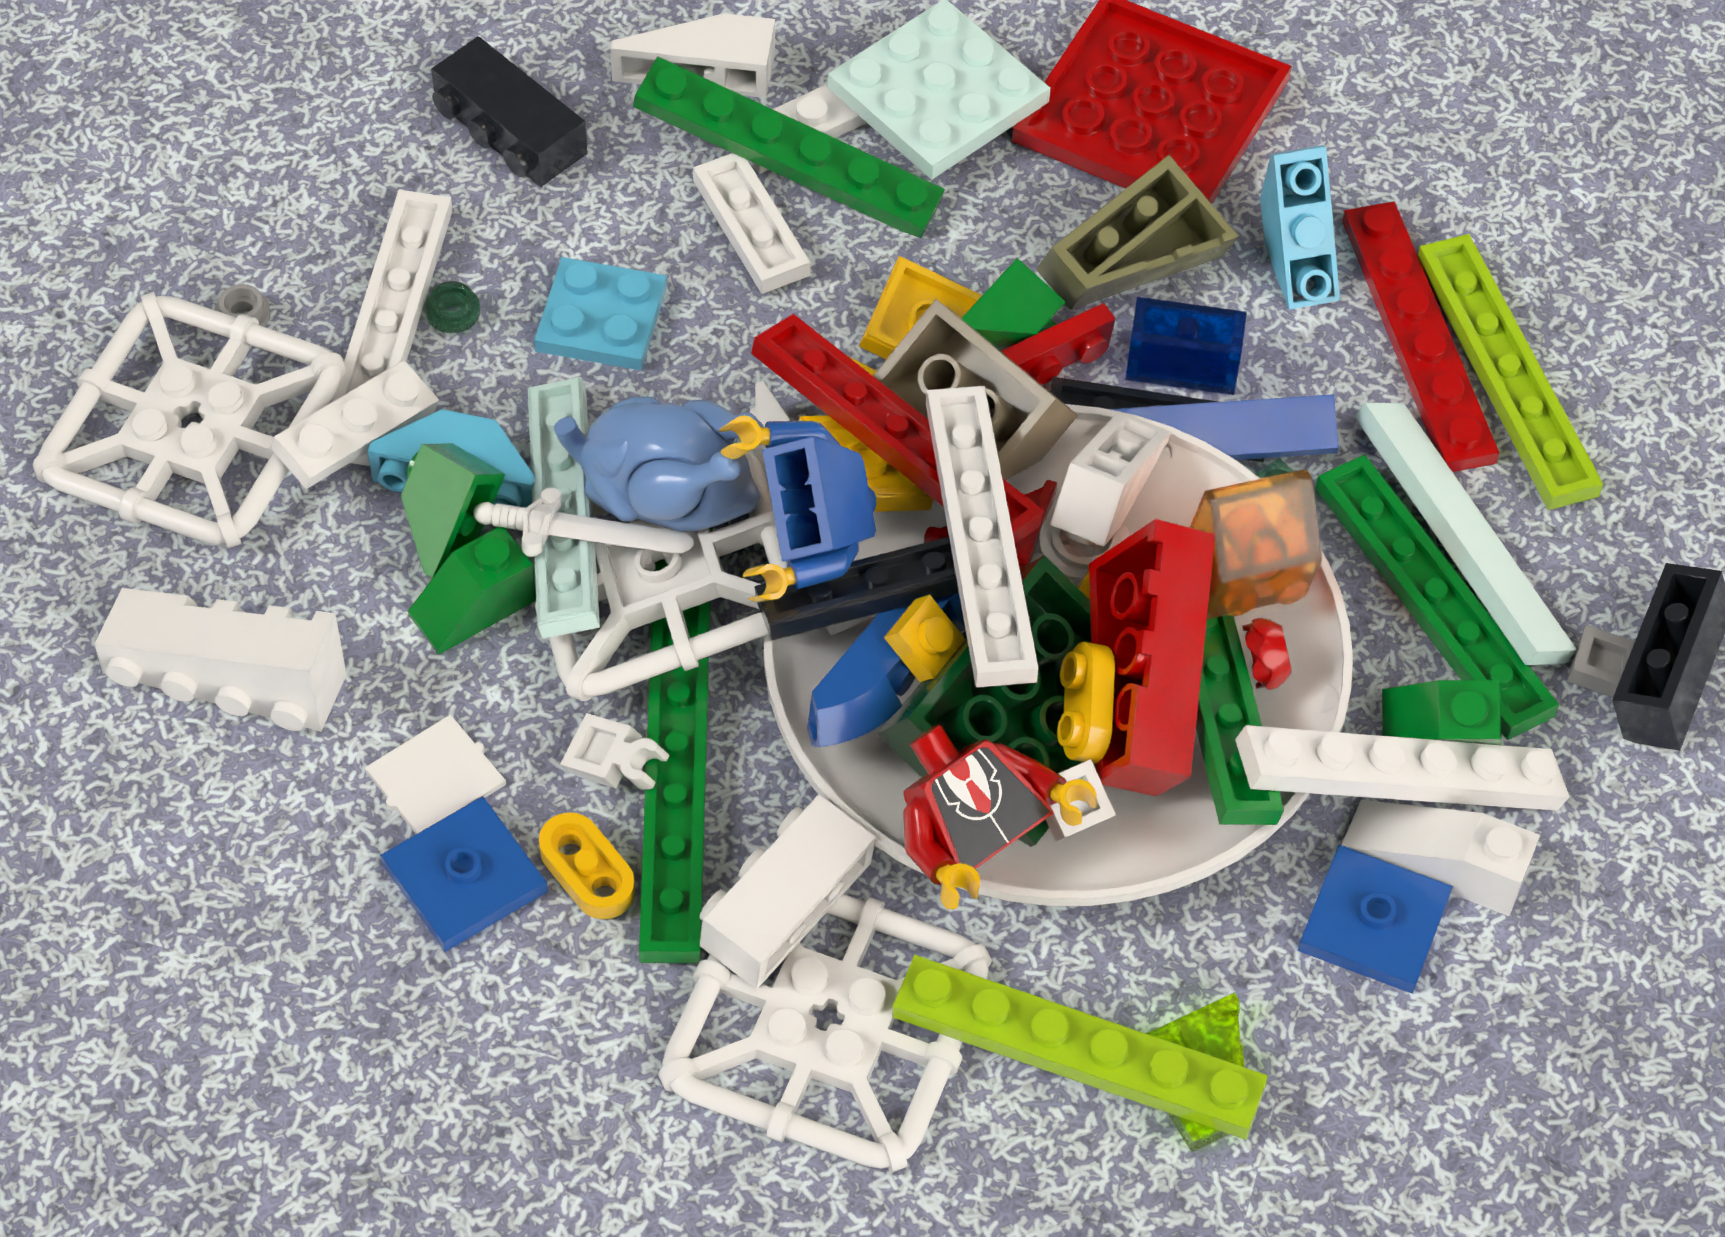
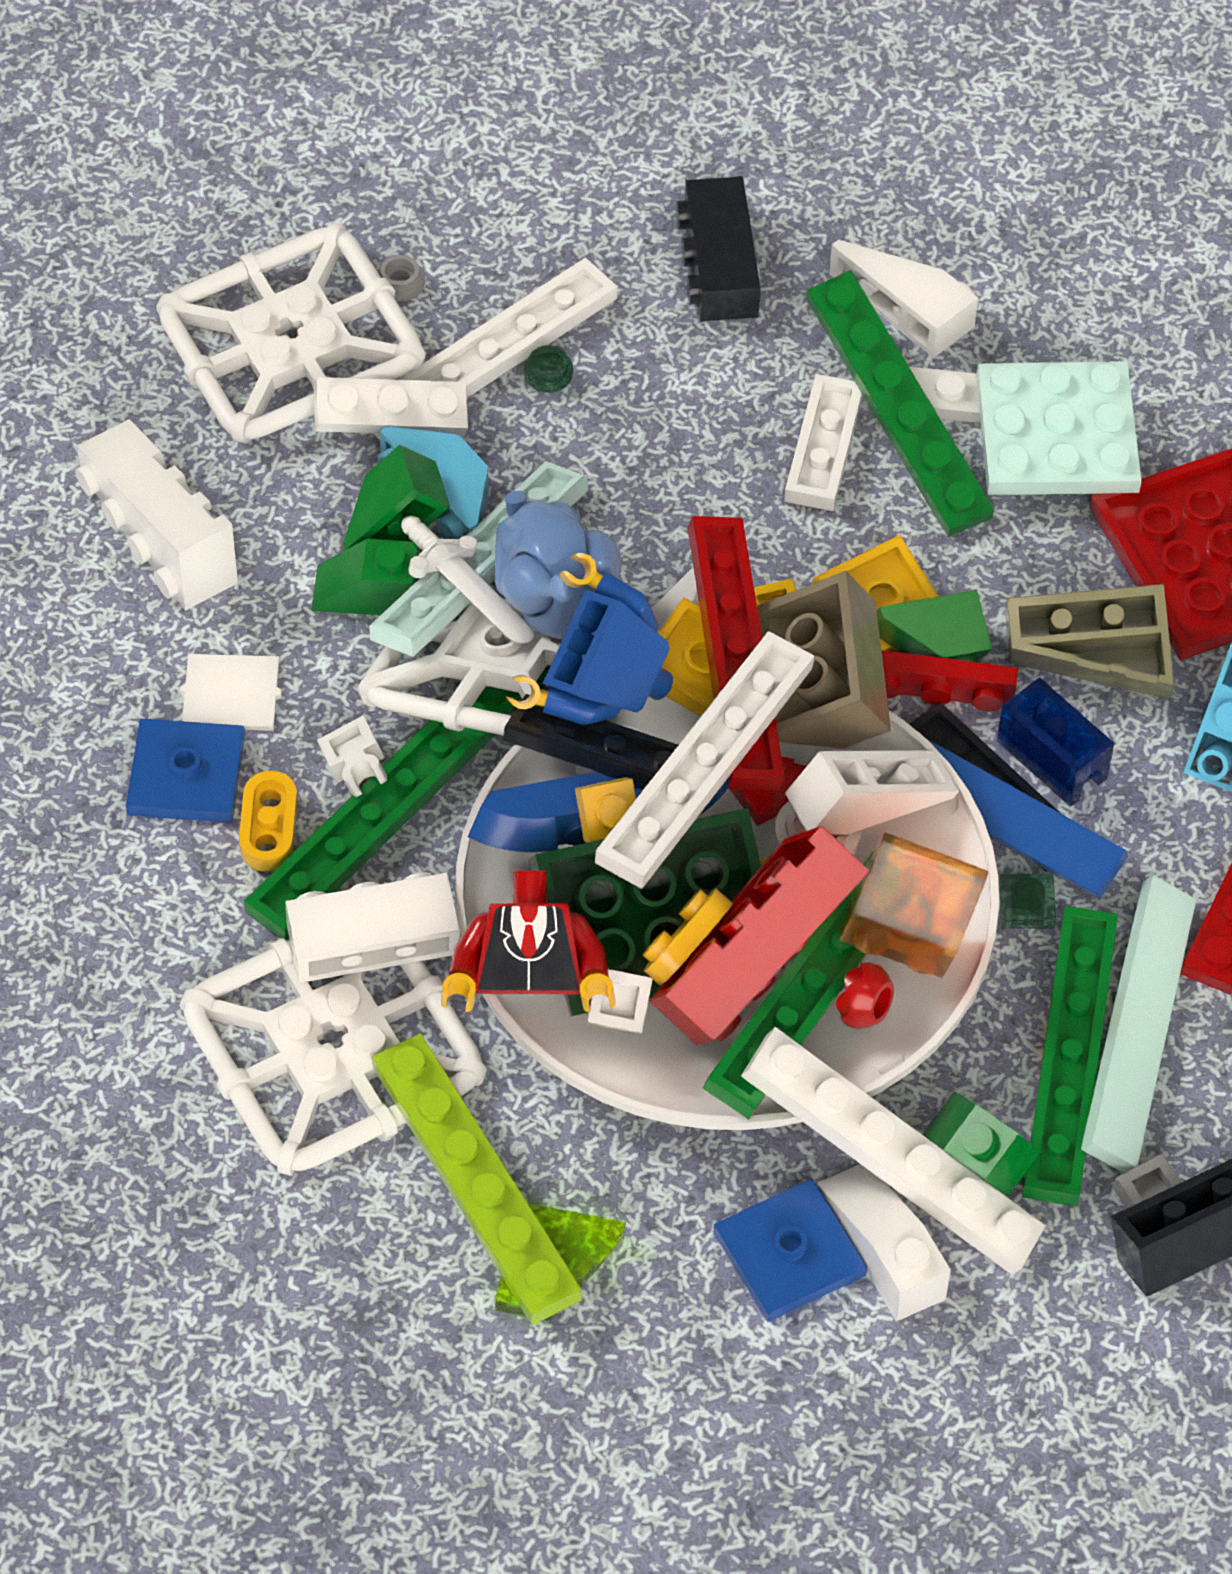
camera: 40 degrees right, 0 degrees up
(601, 313) = (652, 441): medium azure plate -> none

